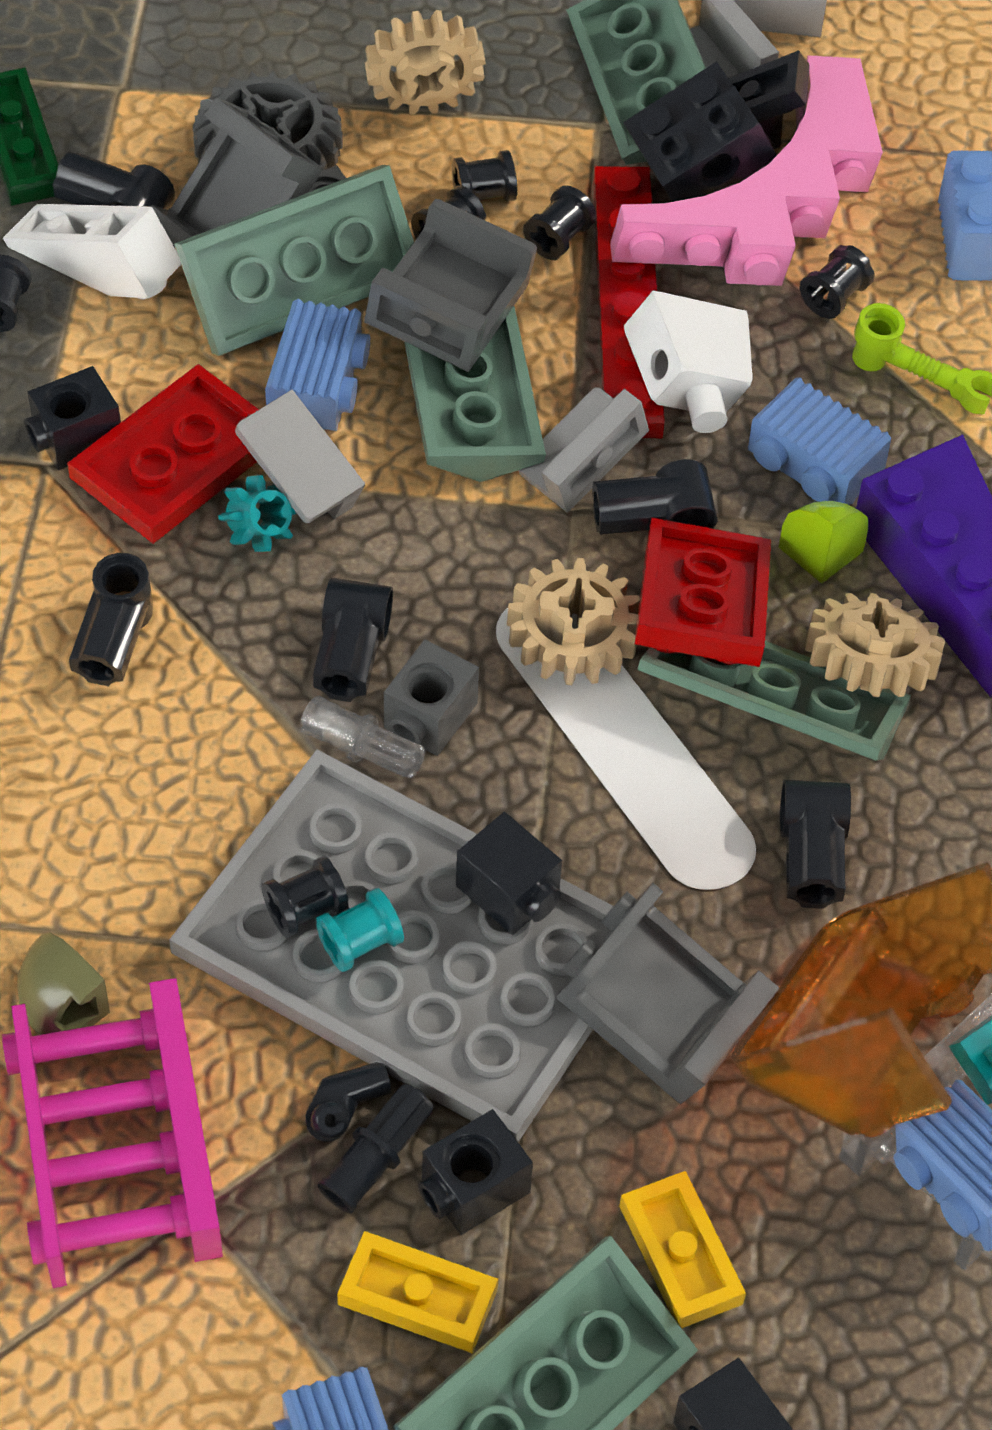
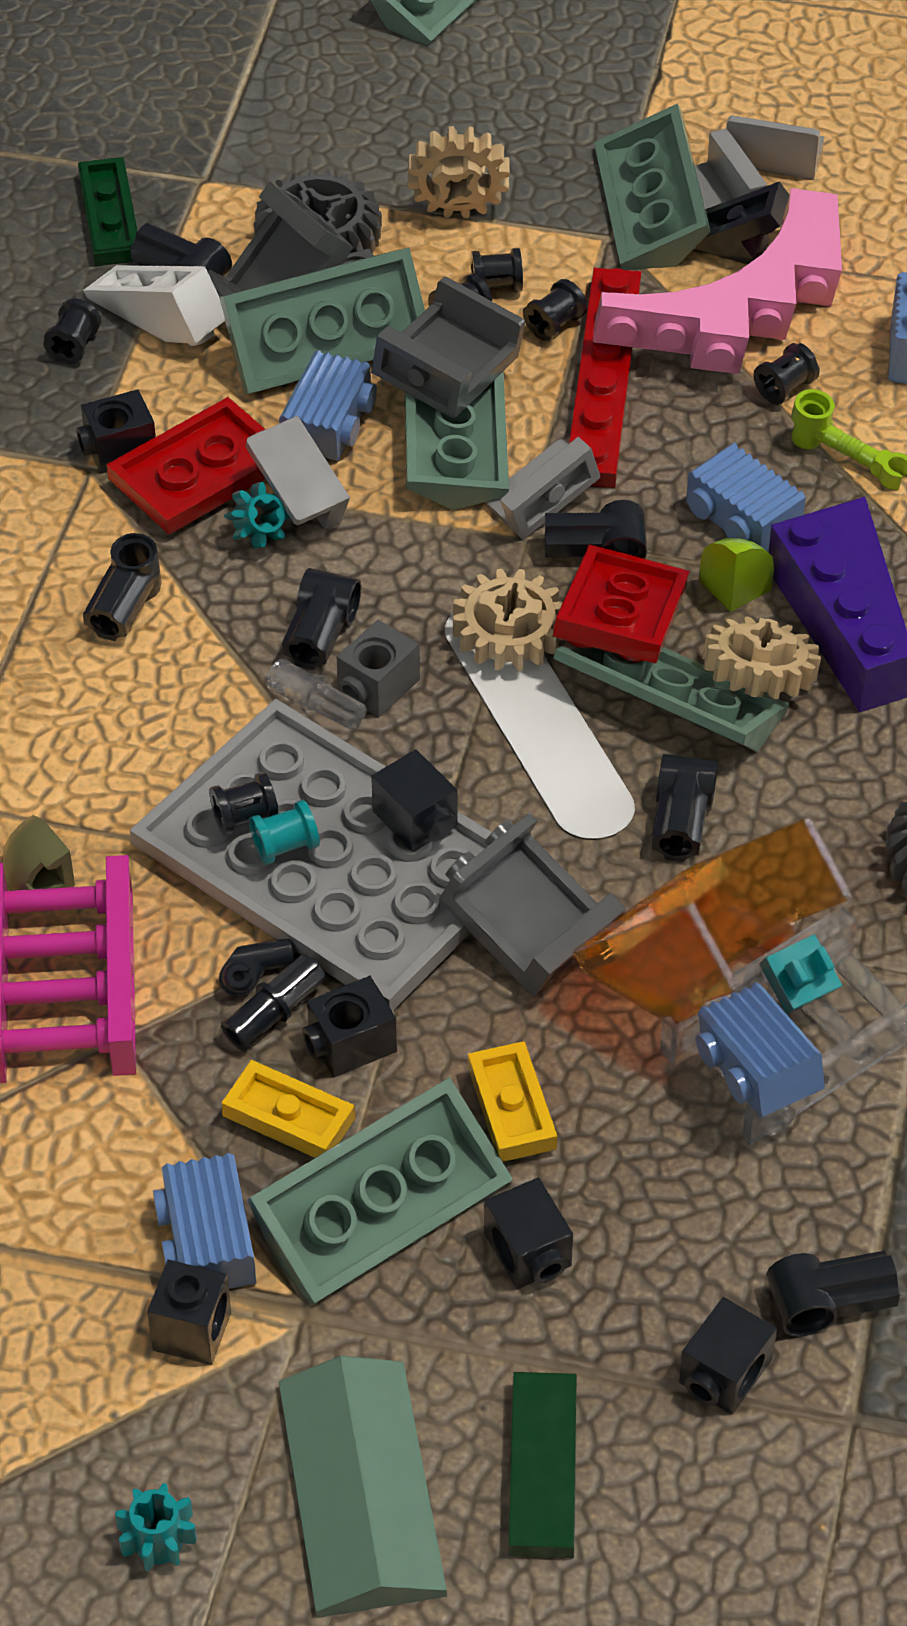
camera: 10 degrees right, 5 degrees down
(692, 355) = (646, 419): white torso -> none
(700, 136) = (685, 245): black brick -> none

